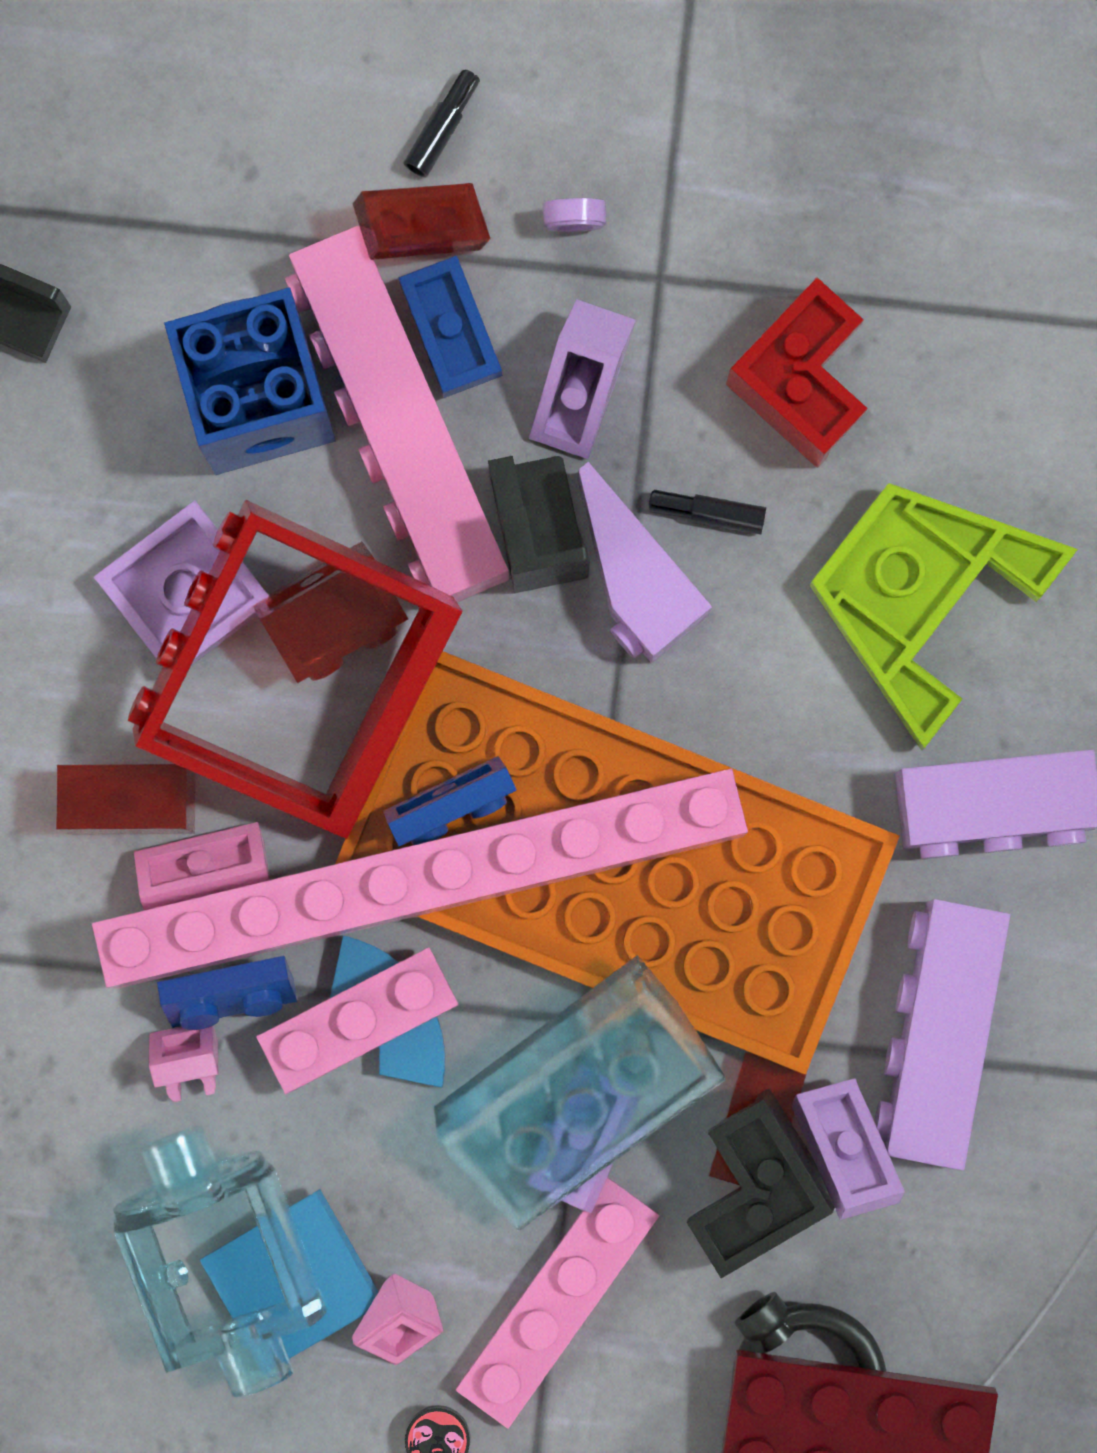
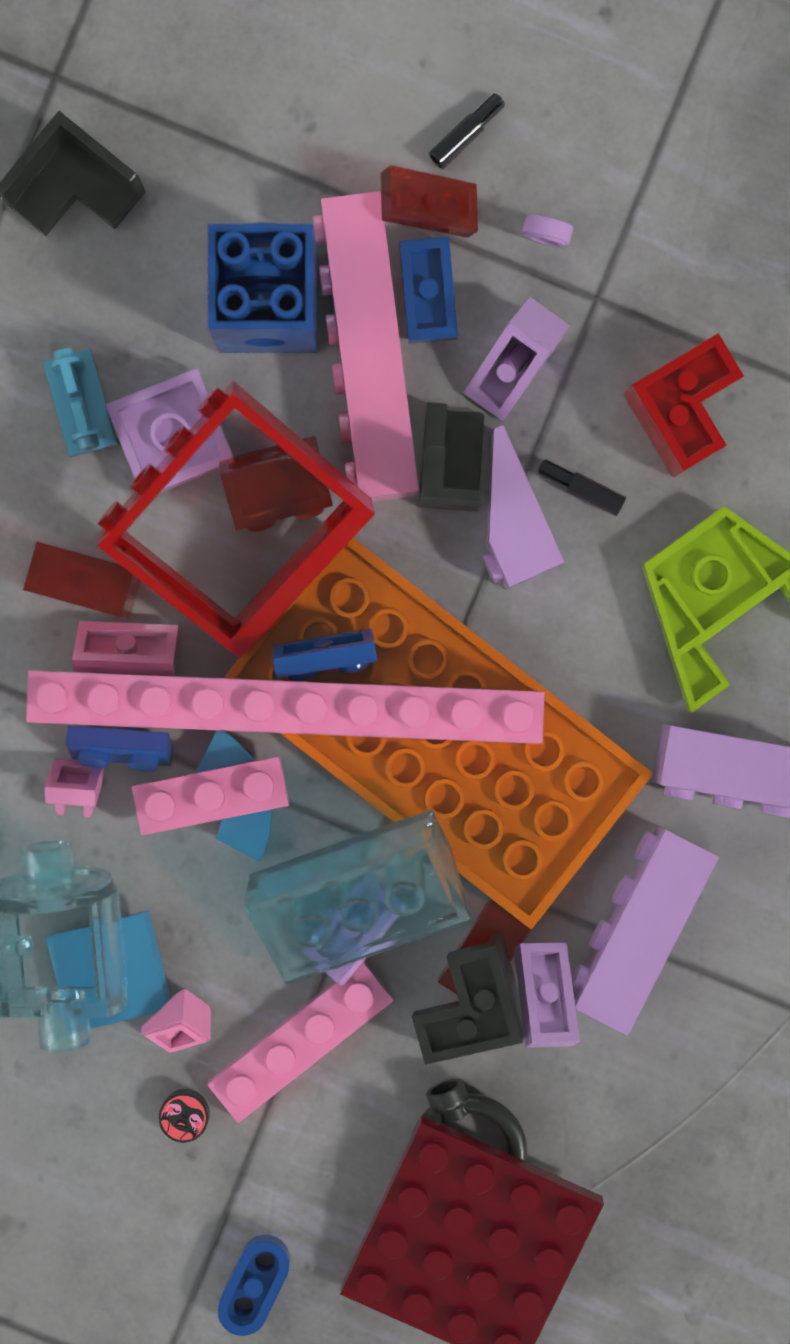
camera: 15 degrees right, 5 degrees up
(60, 583) = (79, 401): none -> medium azure hinge

